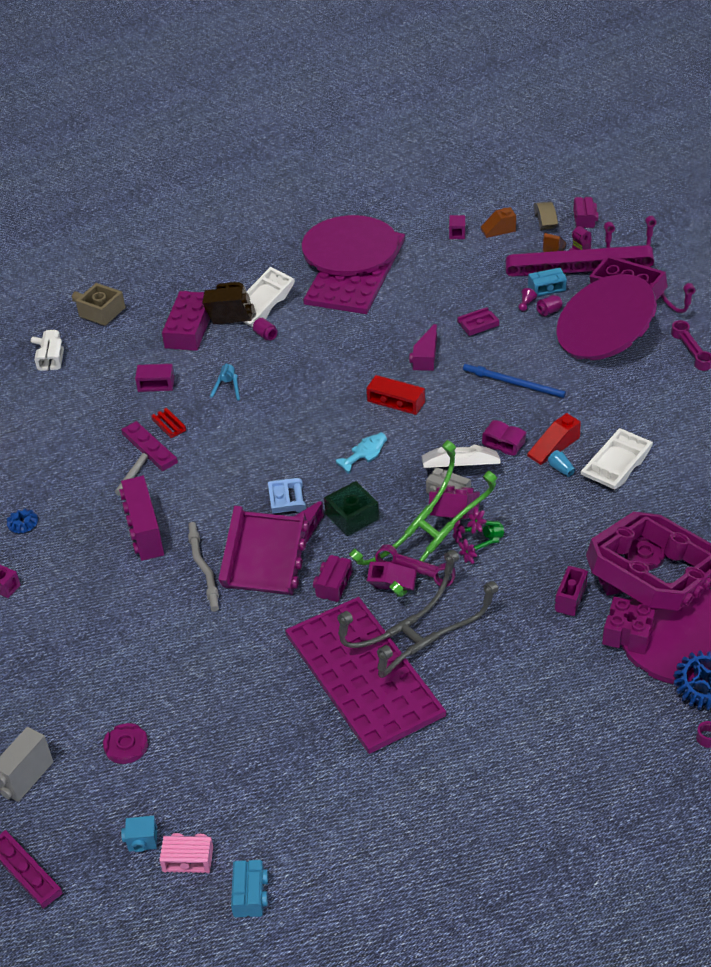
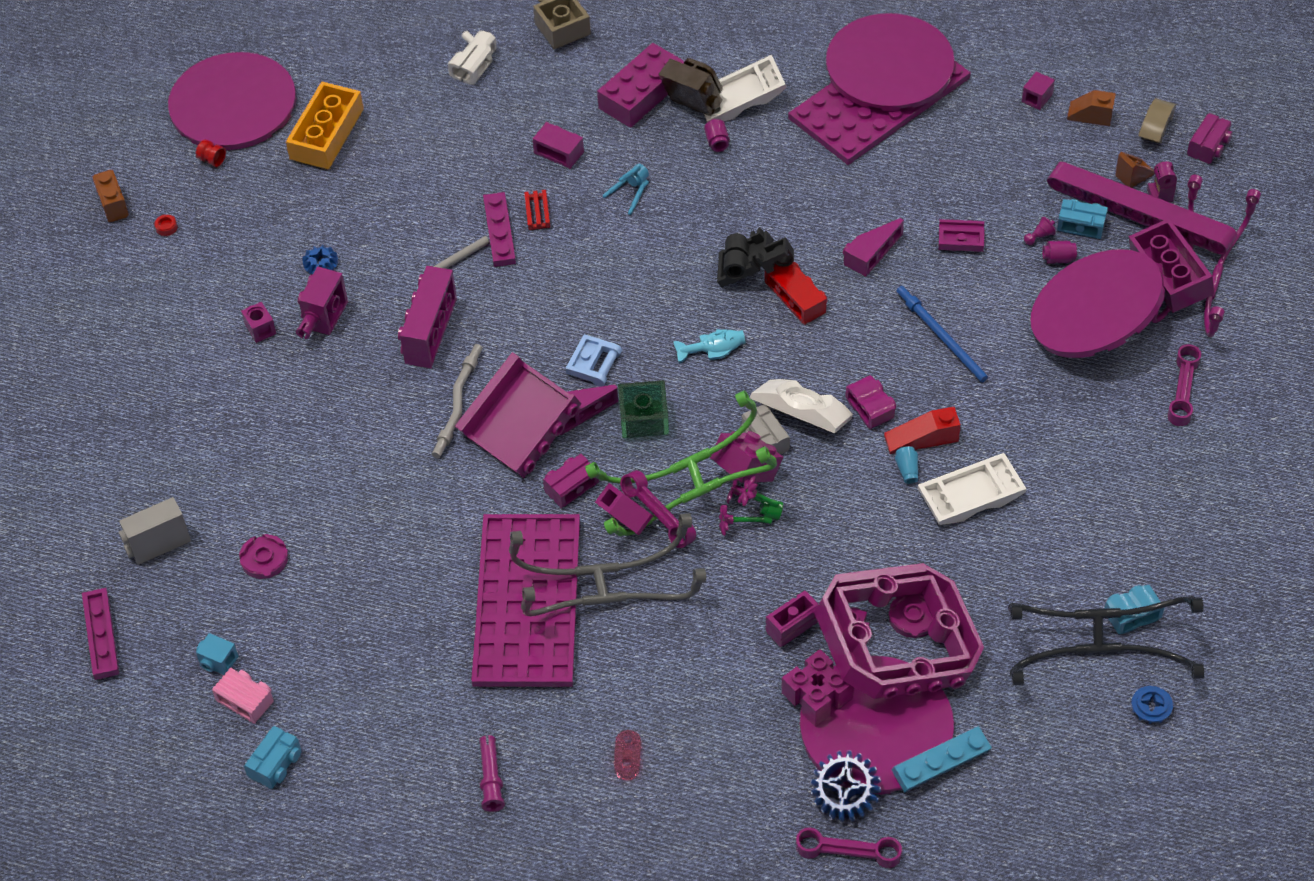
camera: 30 degrees right, 10 degrees up
(48, 543) = (321, 302): none -> magenta brick
(348, 387) = (745, 256): none -> black plate
(441, 815) = (491, 783): none -> magenta pin
(524, 741) = (627, 752): none -> clear pink plate

